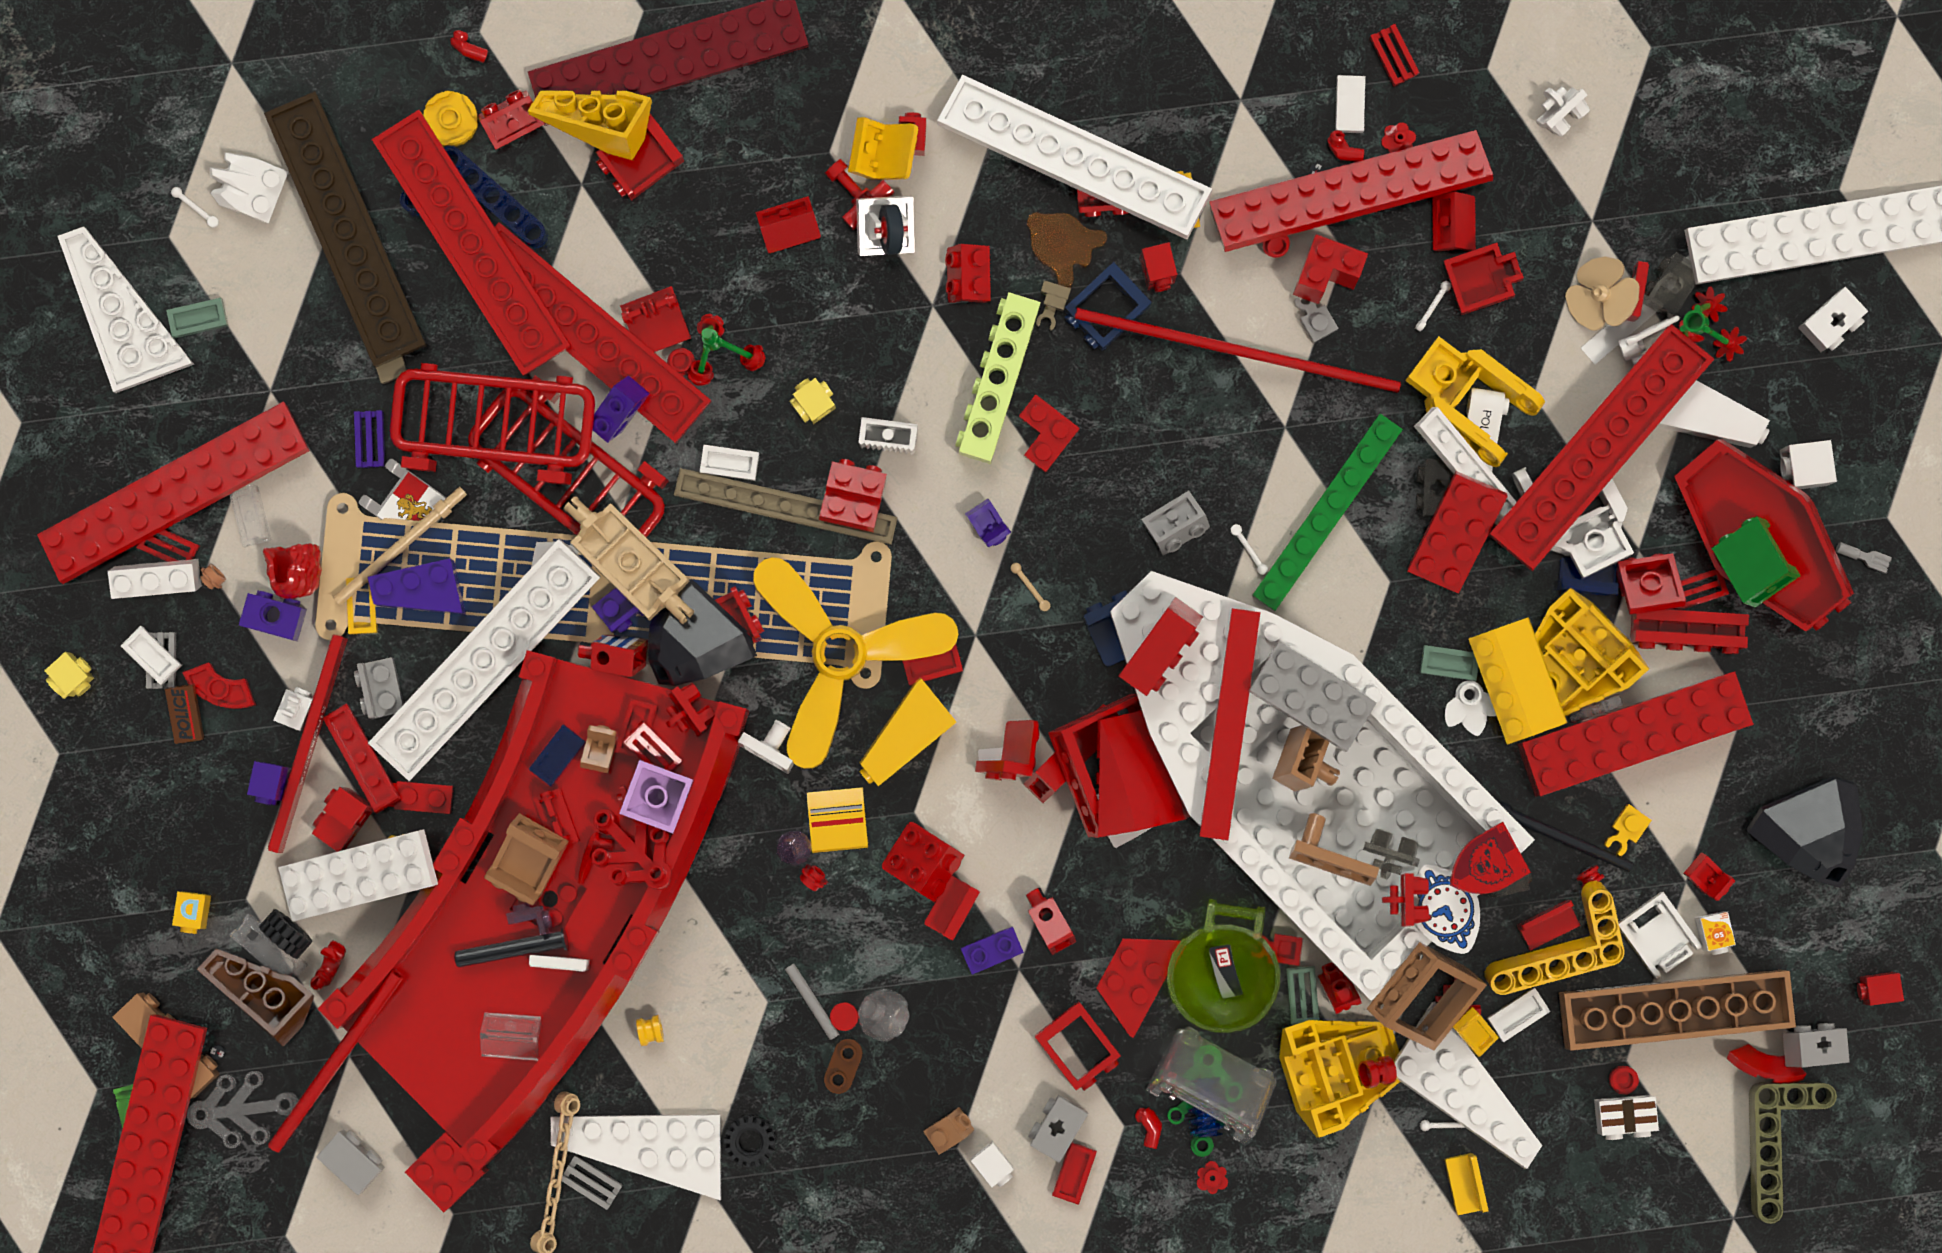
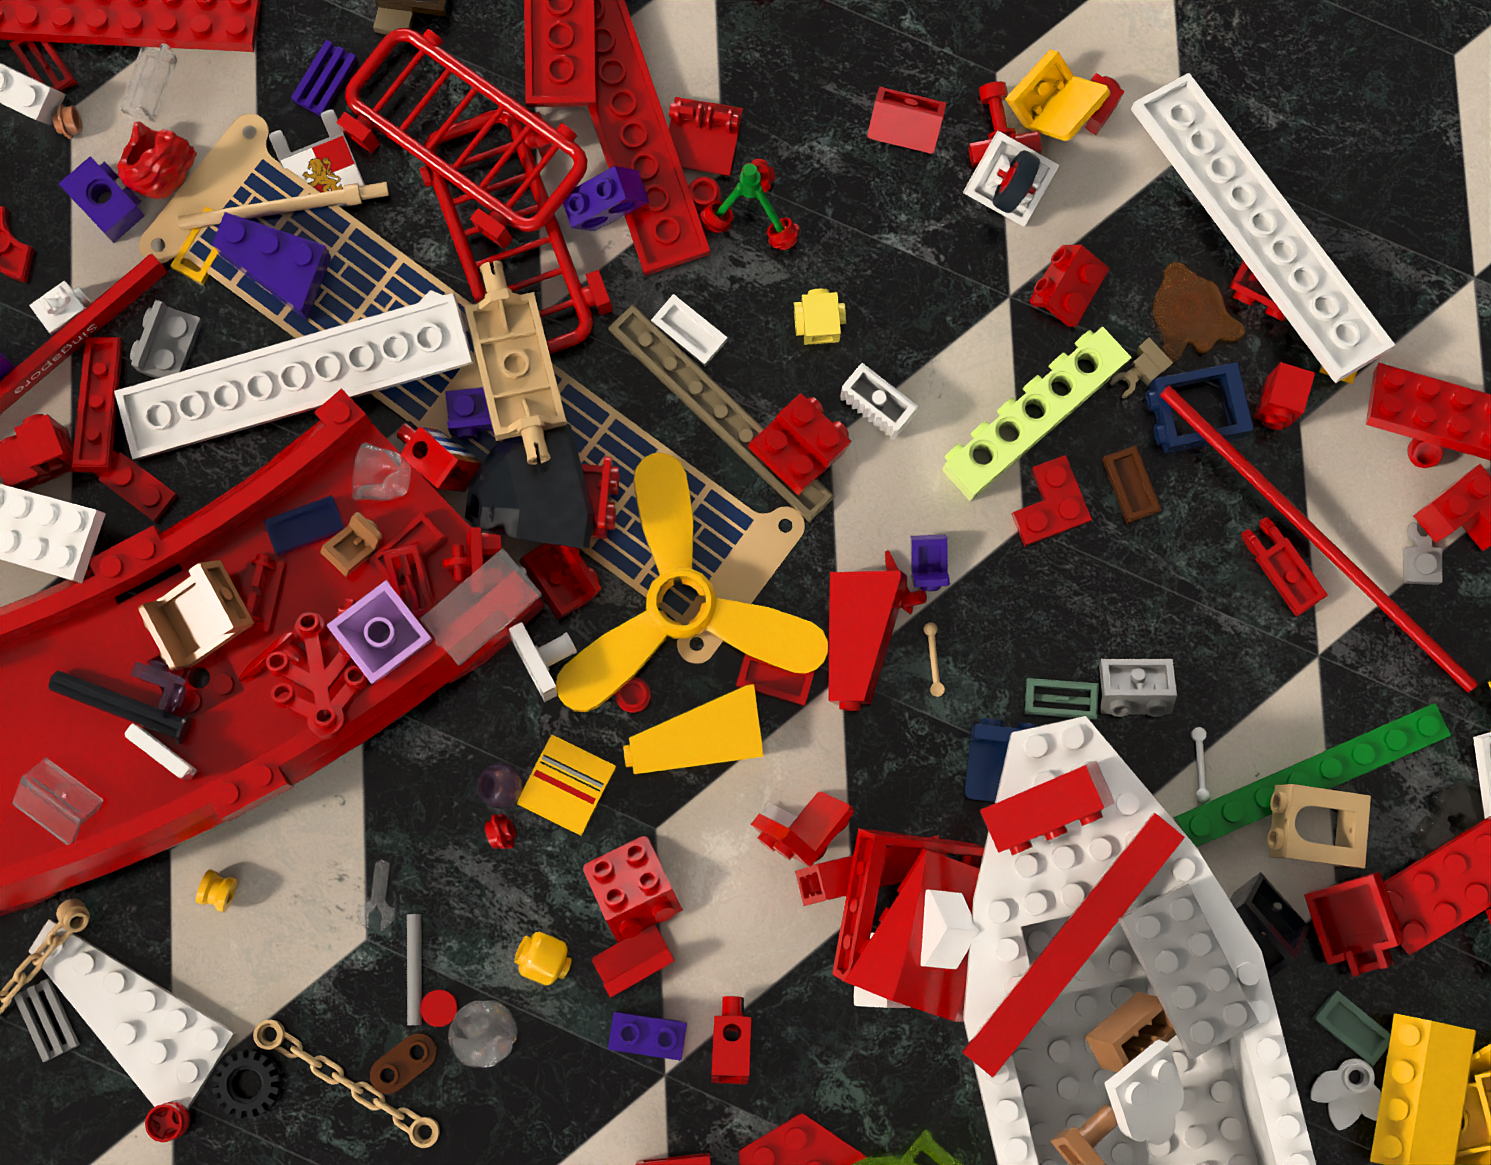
camera: 30 degrees right, 5 degrees down
(578, 693) = (370, 472): none -> clear hair
(711, 1199) = (161, 1124): none -> red wheel
(712, 739) = (481, 606): none -> clear piece
(748, 685) = (561, 577): none -> red bracket
(759, 970) = (378, 898): none -> clear bar
(769, 1101) = (413, 1130): none -> tan piece
(845, 733) = (633, 696): none -> red plate
(892, 942) = (542, 958): none -> yellow head
(969, 597) = (860, 630): none -> red slope
(978, 553) = (910, 598): none -> red bar
(1092, 386) = (1131, 484): none -> reddish brown tile
(1143, 764) = (946, 929): none -> white slope
(1152, 551) = (1030, 697): none -> sand green tile
(1229, 383) = (1285, 568): none -> red hinge
(1333, 791) = (1147, 1095): none -> white plate
(1363, 628) = (1283, 926): none -> black window
(1373, 533) = (1350, 833): none -> tan panel
(1410, 594) = (1355, 923): none -> red piece

